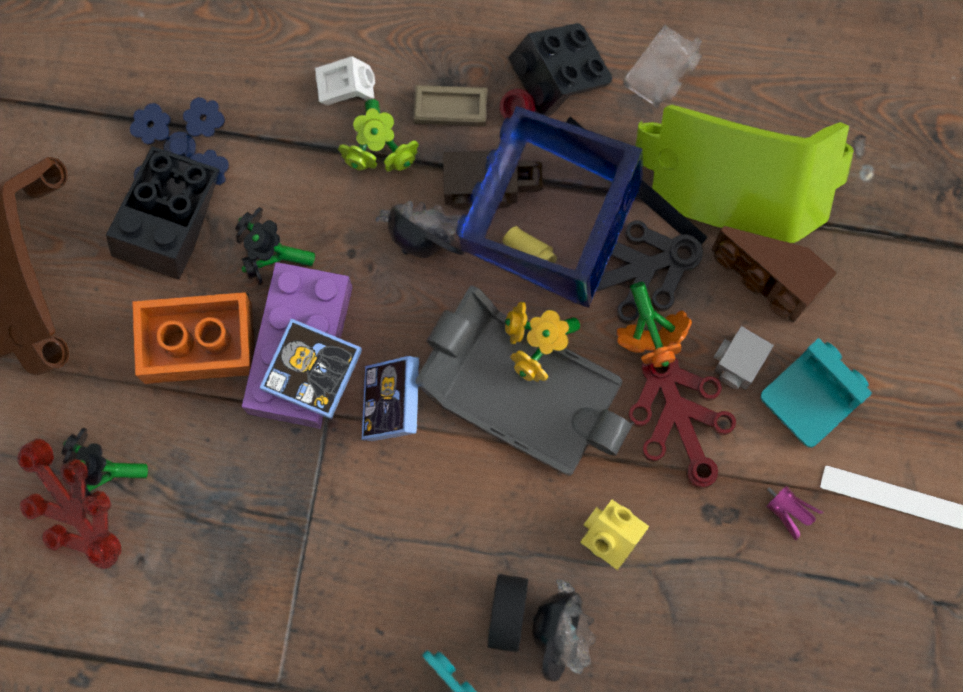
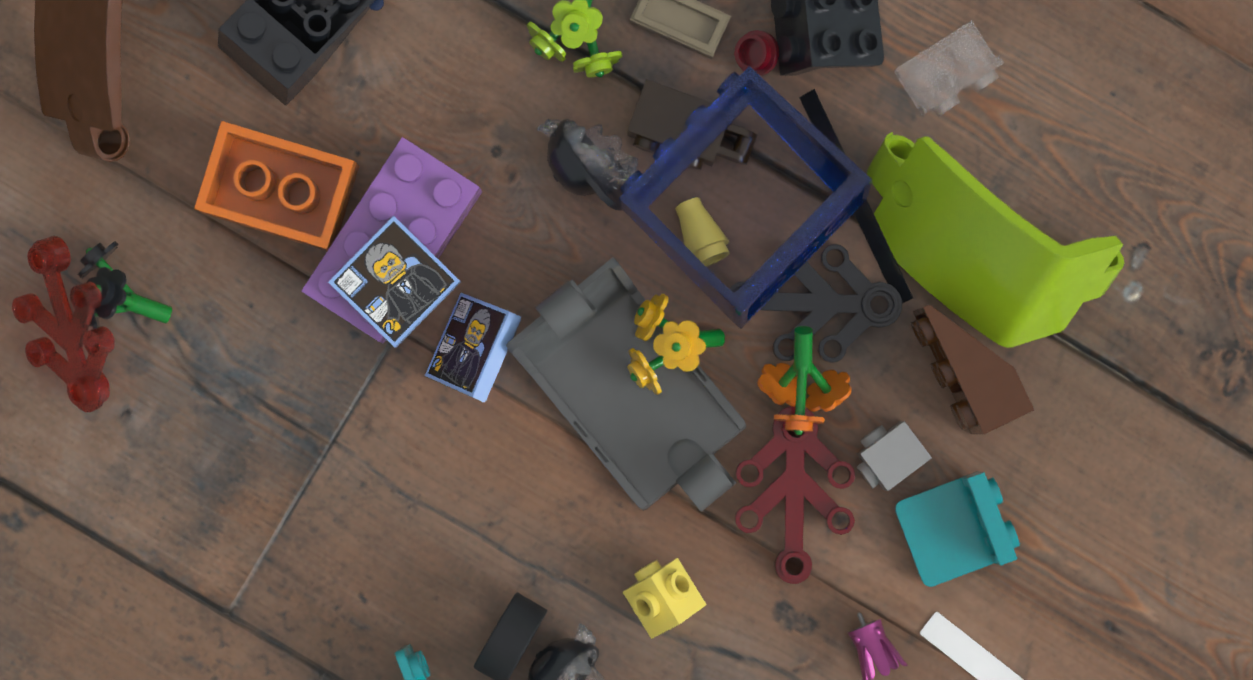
camera: 15 degrees right, 10 degrees up
(262, 242) = (396, 109): black plant -> none

